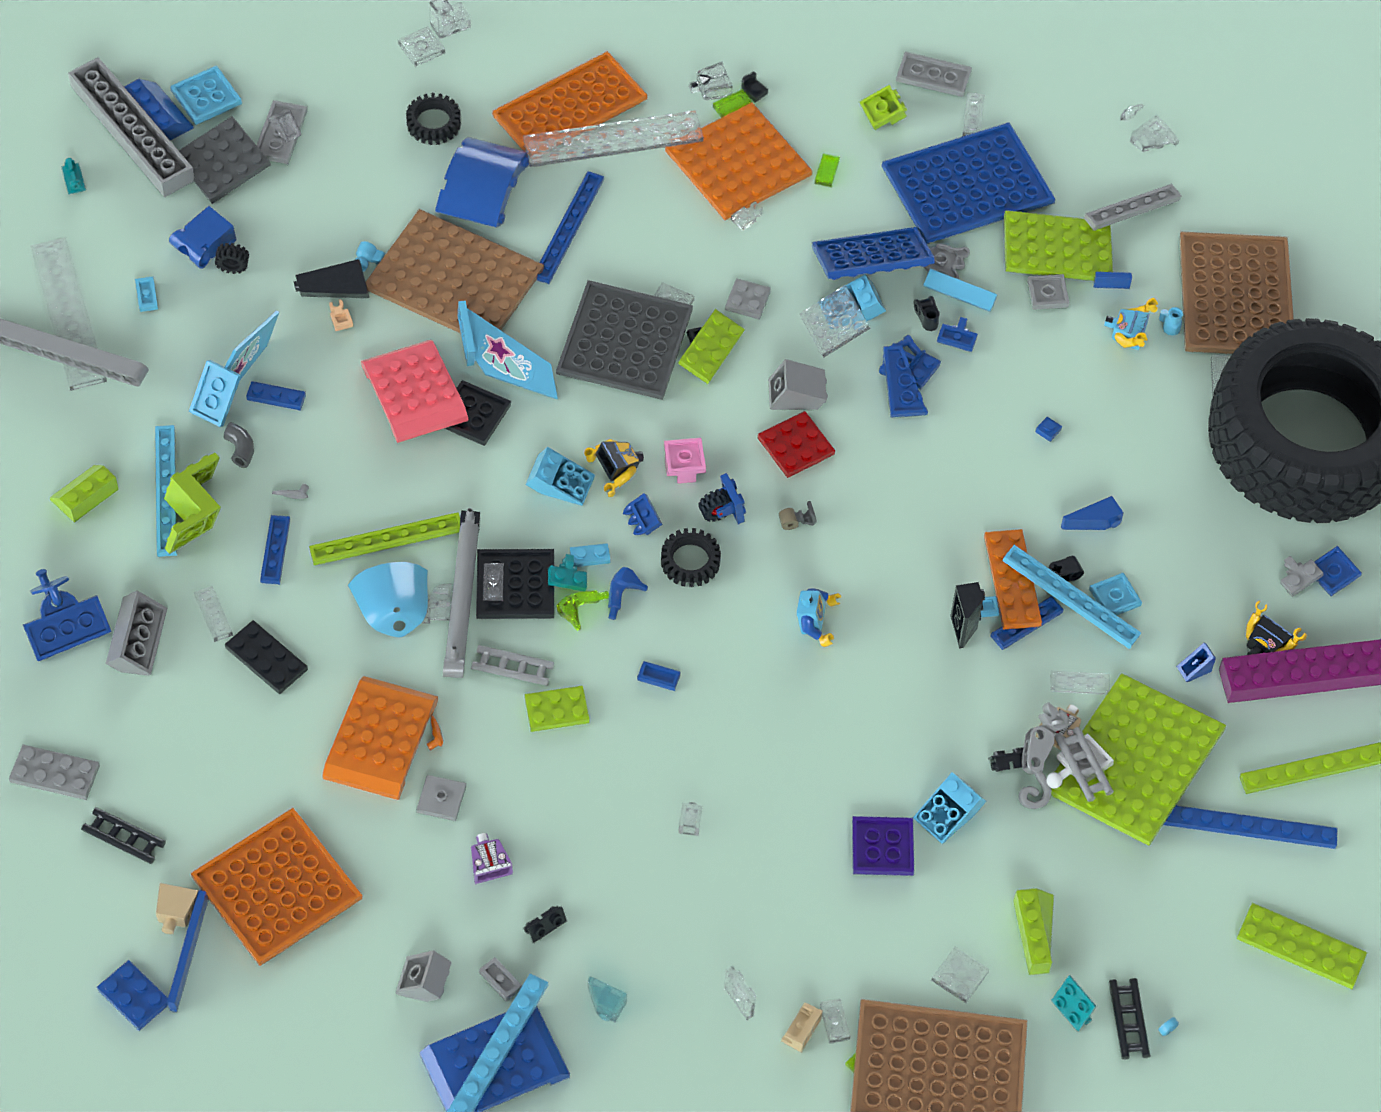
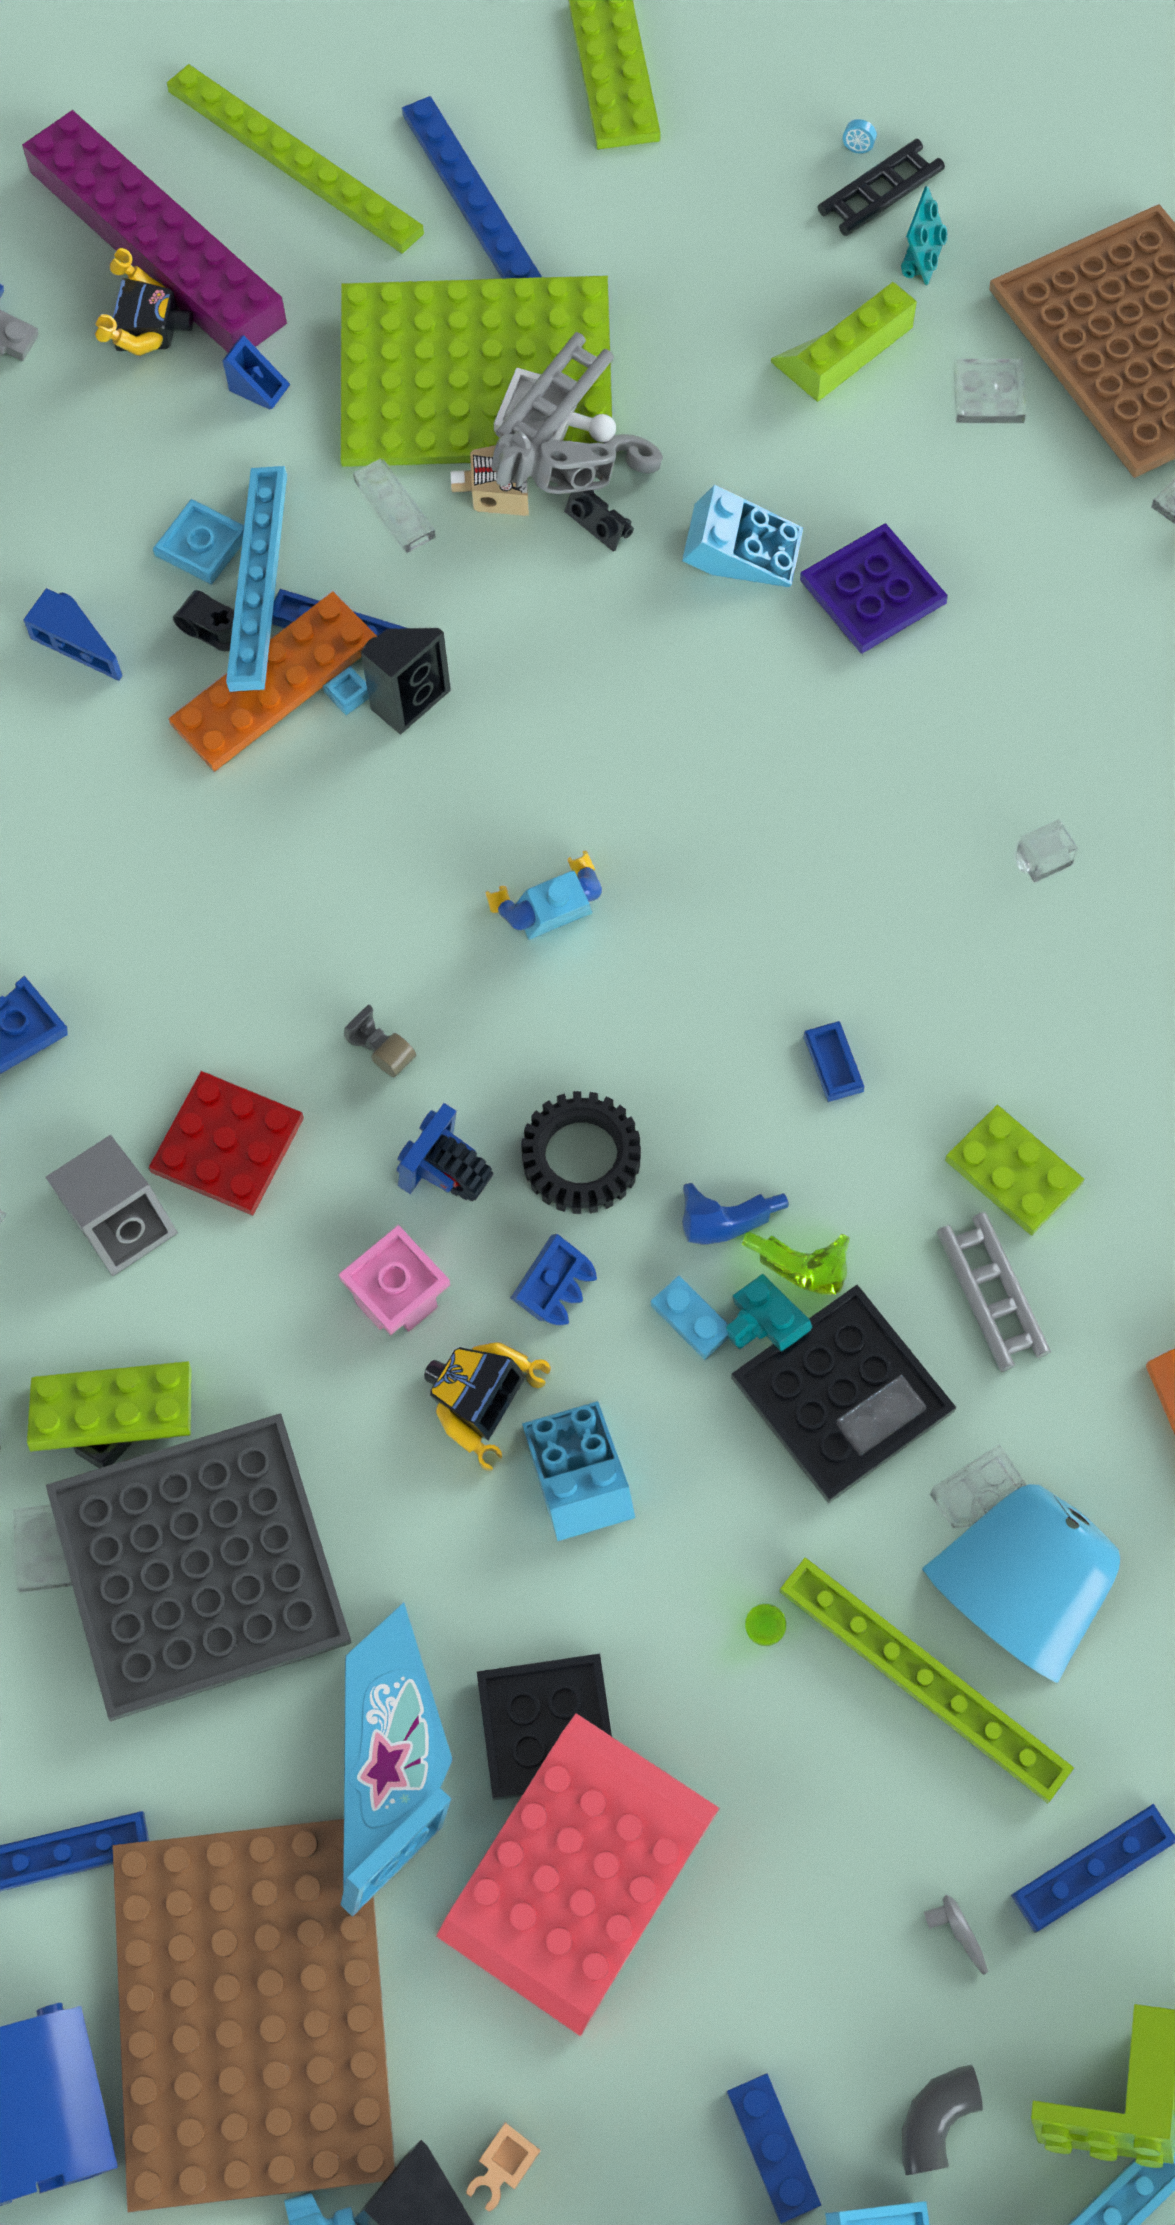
camera: 120 degrees left, 10 degrees up
(450, 502) = (765, 1624): none -> clear neon green plate
(462, 594) = (804, 1534): light grey piece -> none

